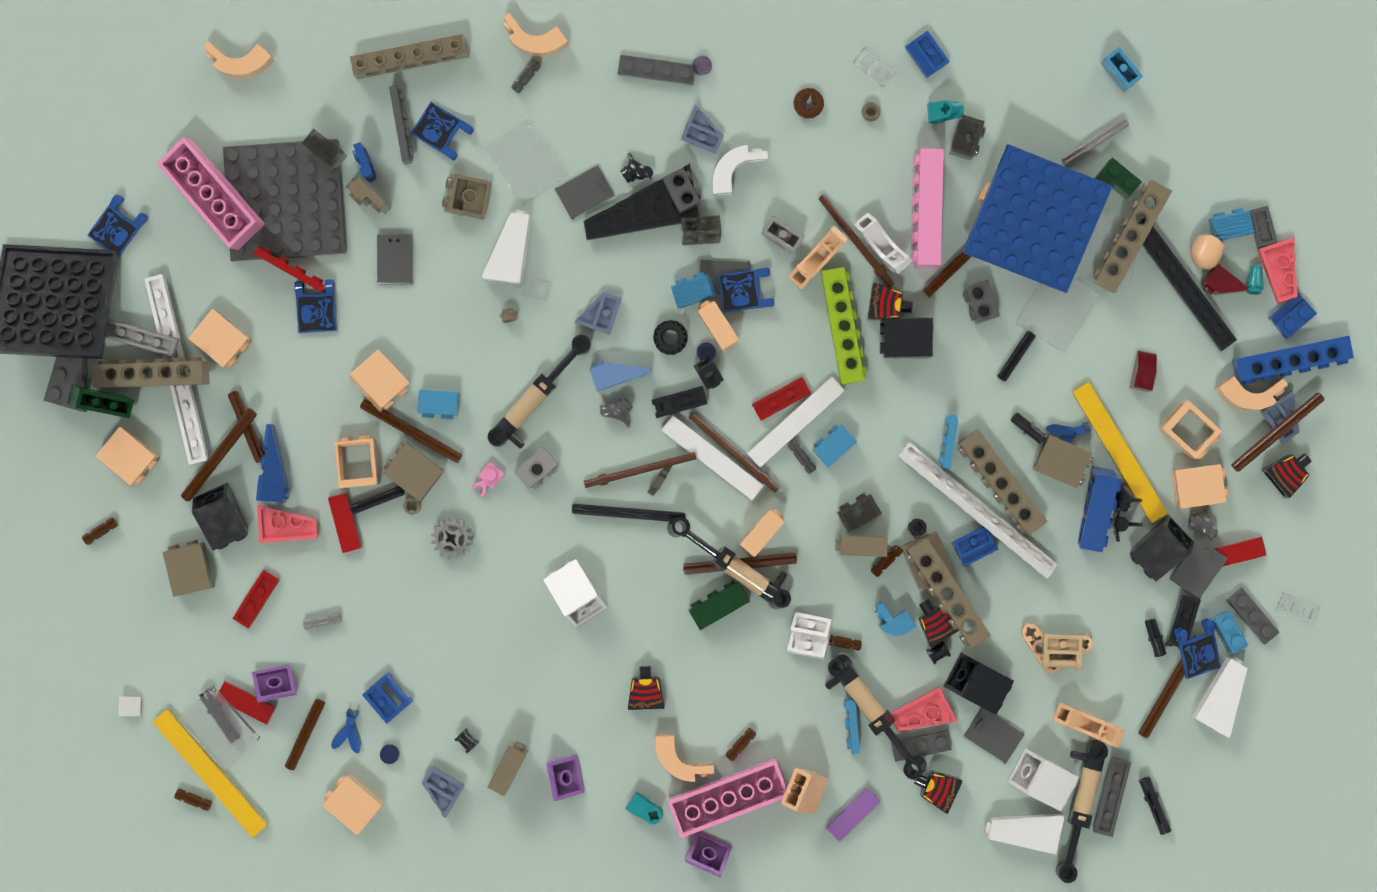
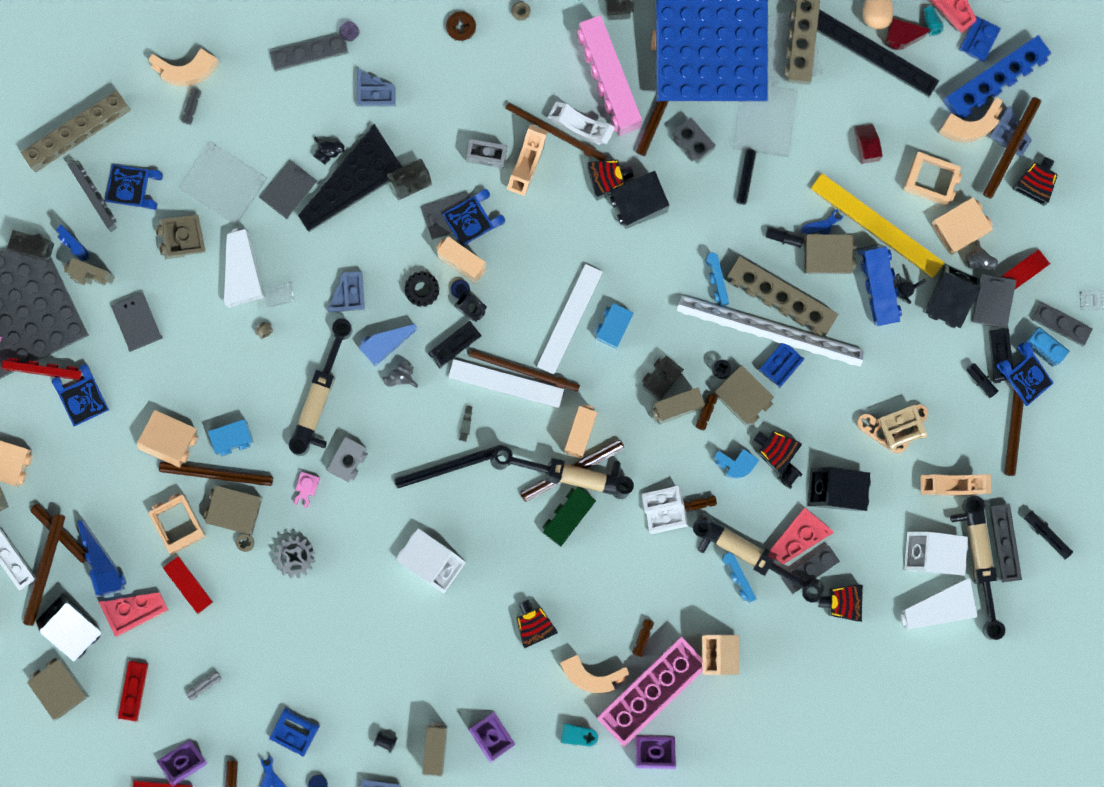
camera: 30 degrees left, 5 degrees down
(376, 500) = (209, 551): black axle -> none
(603, 479) = (413, 445): reddish brown bar -> none
(678, 192) = (373, 153): dark grey brick -> none
(693, 291) = (426, 237): dark azure brick -> none
(729, 162) = (411, 107): white arch -> none
(781, 398) = (547, 303): red tile -> none
(801, 456) = (588, 348): dark grey axle -> none
(829, 278) = (598, 256): lime brick -> none
(853, 814) = (774, 660): medium lavender tile -> none
(979, 631) = (818, 438): dark tan brick -> none
(994, 735) = (873, 532): dark grey container -> none
(1125, 497) = (900, 263): black animal -> none
(1222, 697) = (1067, 412): white slope -> none

